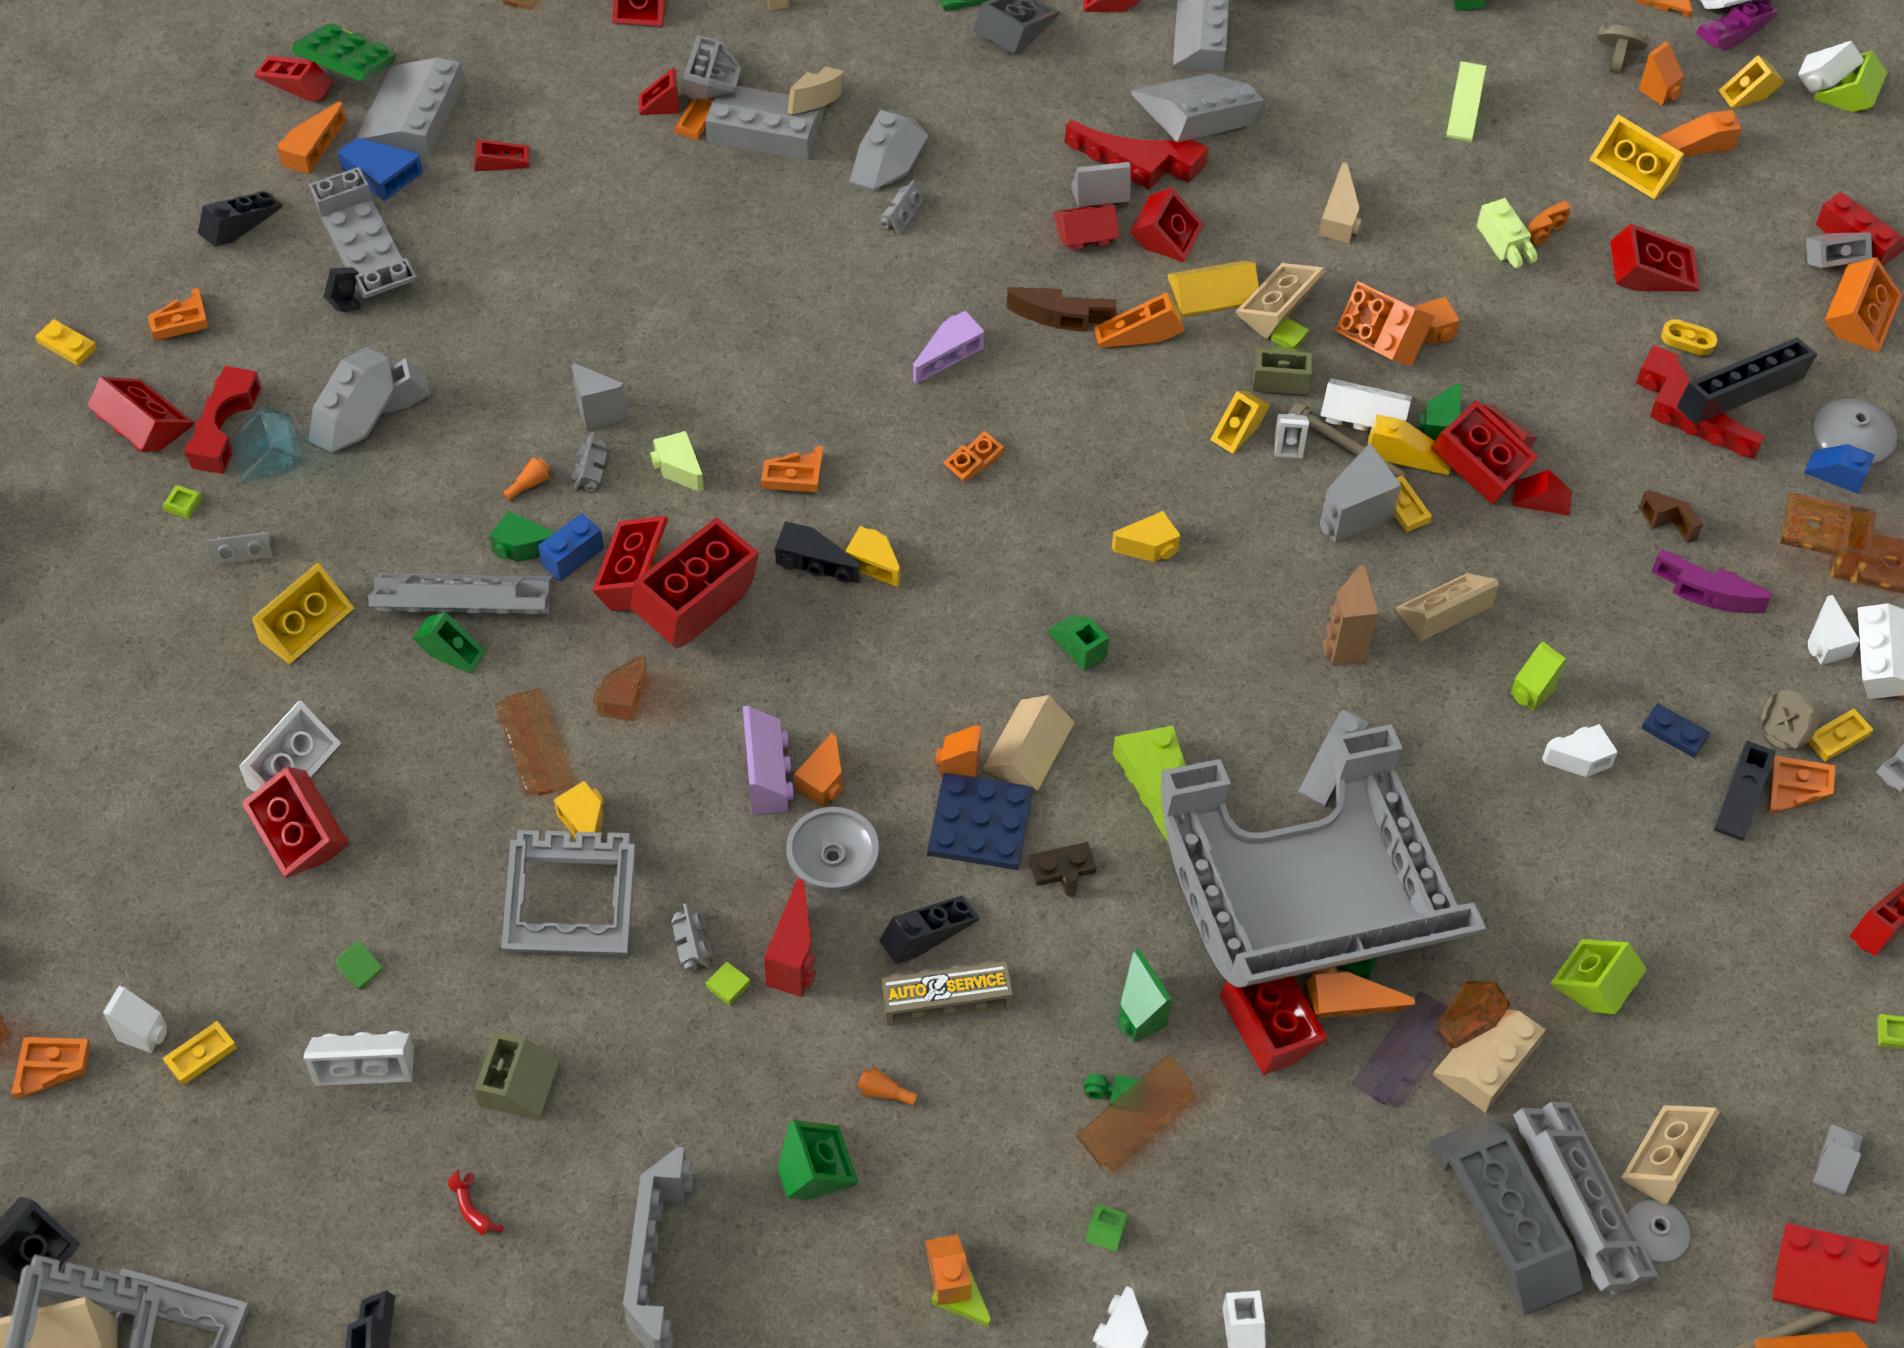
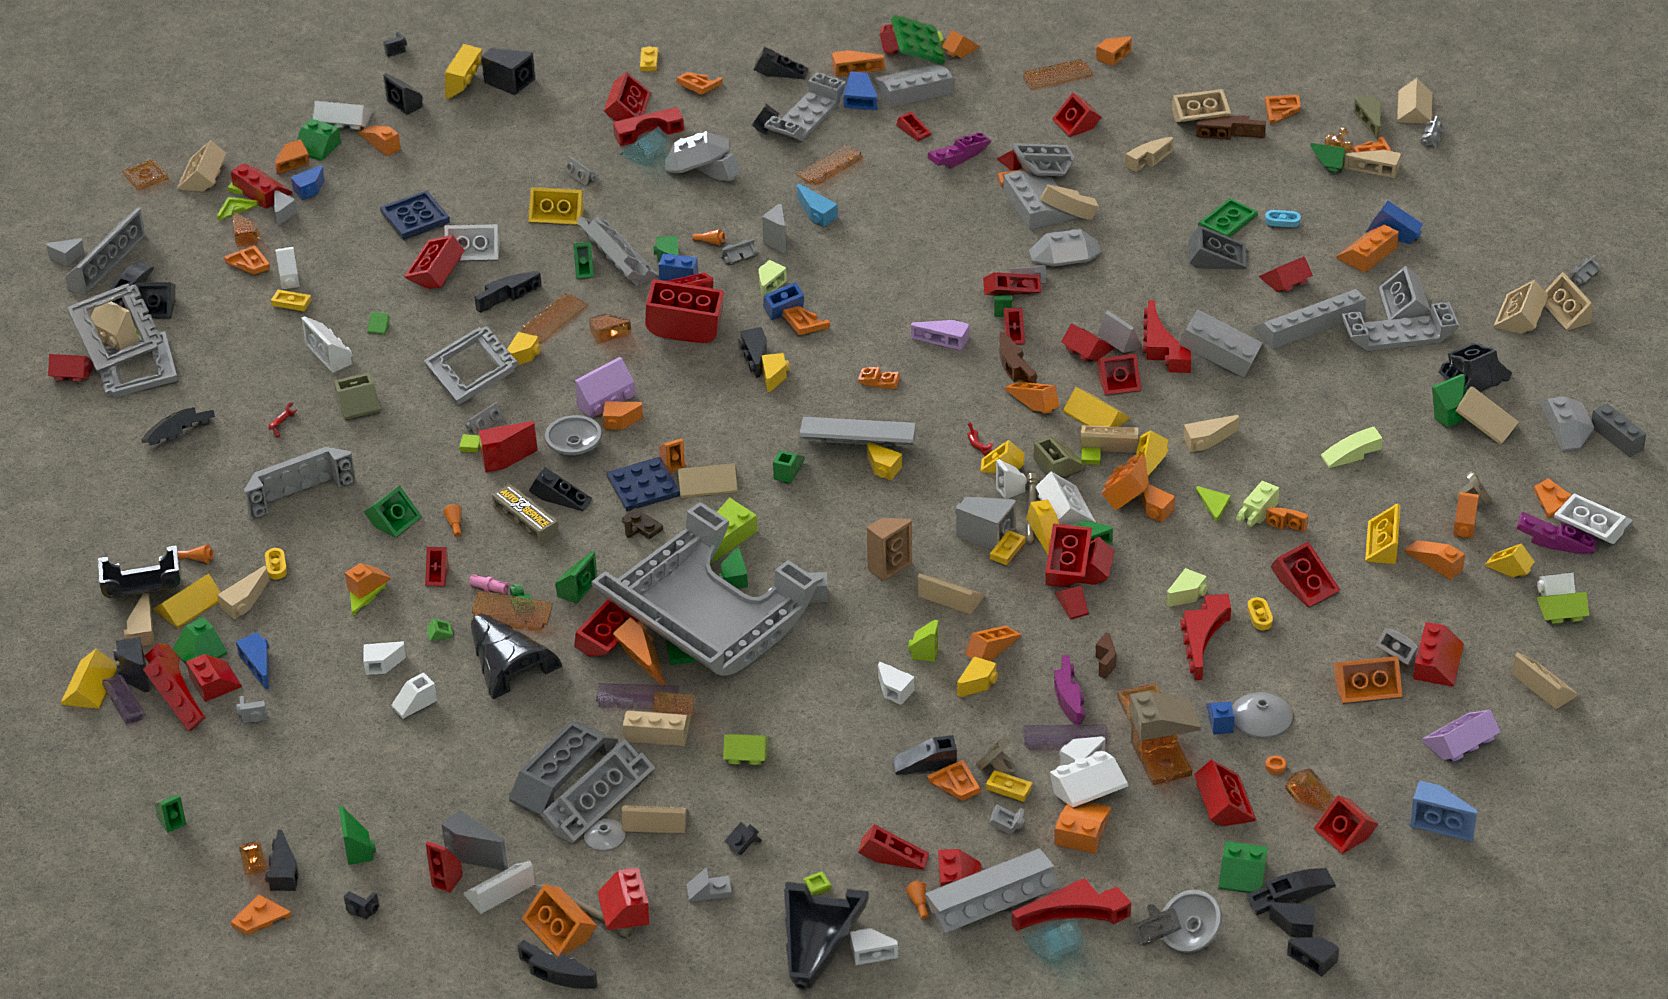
camera: 60 degrees right, 15 degrees down
(146, 792) = (414, 214): none -> dark blue plate
(182, 502) = (590, 141): lime tile -> none
(385, 24) = (959, 45): none -> orange slope
(430, 762) = (507, 287): none -> black slope
(493, 277) = (830, 165): none -> clear orange windscreen
(573, 335) = (817, 207): none -> dark azure slope
(598, 136) = (961, 151): none -> magenta slope
(747, 470) = (781, 299): none -> blue brick
(913, 233) = (1011, 284): none -> red slope
(943, 256) = (1000, 303): none -> green slope
(980, 1163) = (436, 566): none -> red slope
(995, 272) = (1014, 324): none -> red slope
(1059, 1113) = (489, 584): none -> bright pink pin
(1090, 533) = (858, 431): none -> light grey slope
(1201, 425) = (973, 438): none -> red piece
(1229, 1167) = (506, 653): none -> black cone
(1250, 808) = (734, 570): none -> green slope
(1341, 273) = (1154, 449): none -> yellow slope
(1460, 270) = (1213, 501): none -> lime tile
(1575, 614) = (991, 642): none -> orange slope
(1601, 375) = (1186, 588): none -> yellowish green slope
(1624, 660) = (977, 677): none -> yellow slope
(1675, 730) = (949, 718): dark blue plate -> none
(1746, 380) = (1233, 637): black brick -> none
(1770, 1070) = (742, 837): none -> black bracket
(1778, 634) = (1057, 735): none -> clear purple windscreen
(1865, 519) = (1162, 715): none -> dark tan slope

